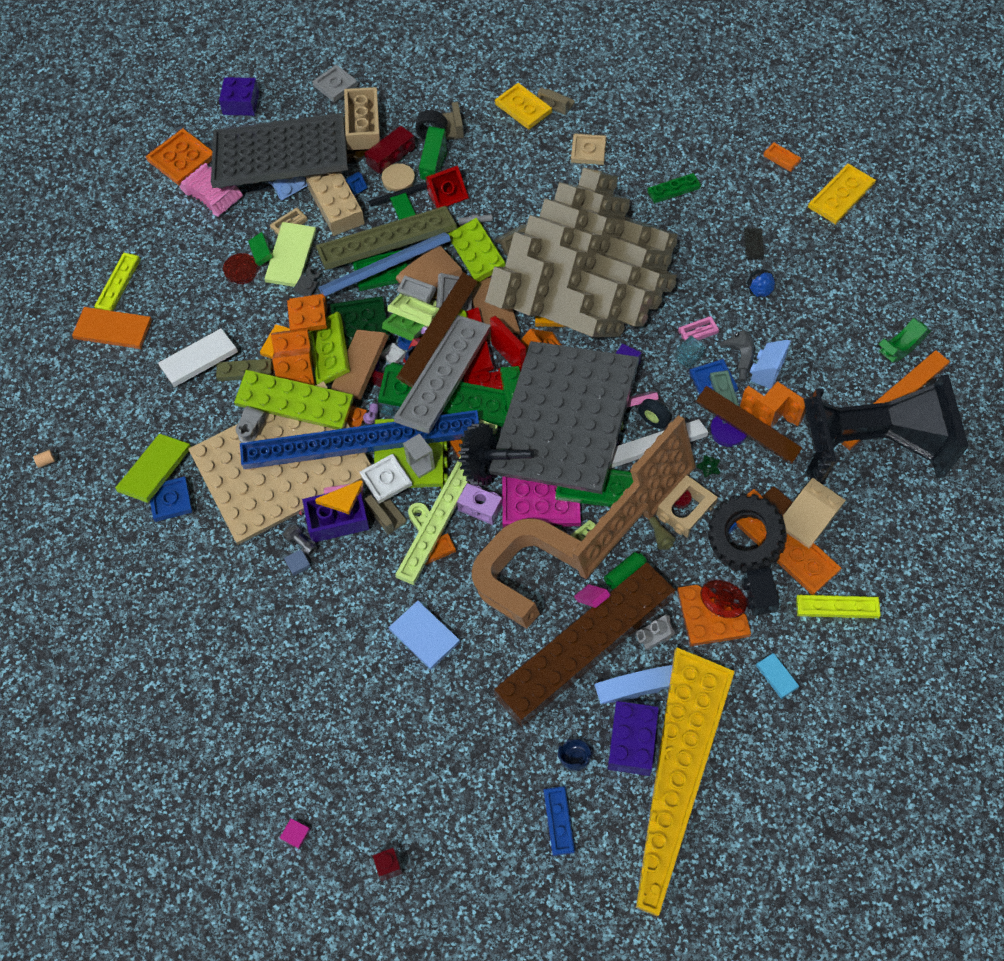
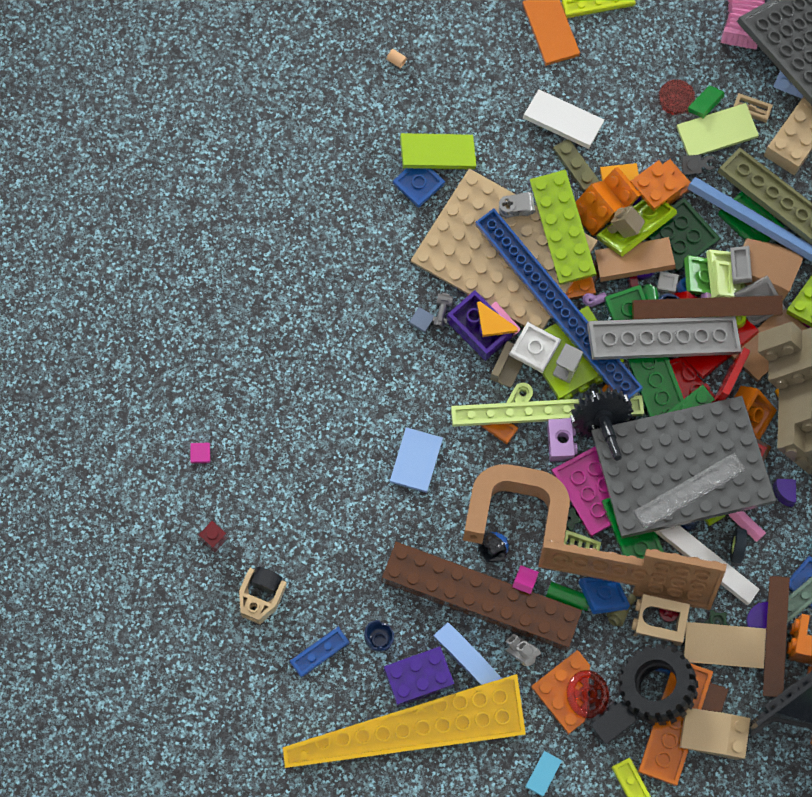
camera: 55 degrees right, 10 degrees up
(323, 349) = (626, 221): none -> dark tan brick
(460, 836) = (266, 581): none -> tan piece
(548, 607) = (493, 547): none -> black piece
(593, 416) = (689, 491): none -> clear plate
(641, 539) = (603, 595): none -> blue plate
(735, 467) = (725, 645): none -> tan tile

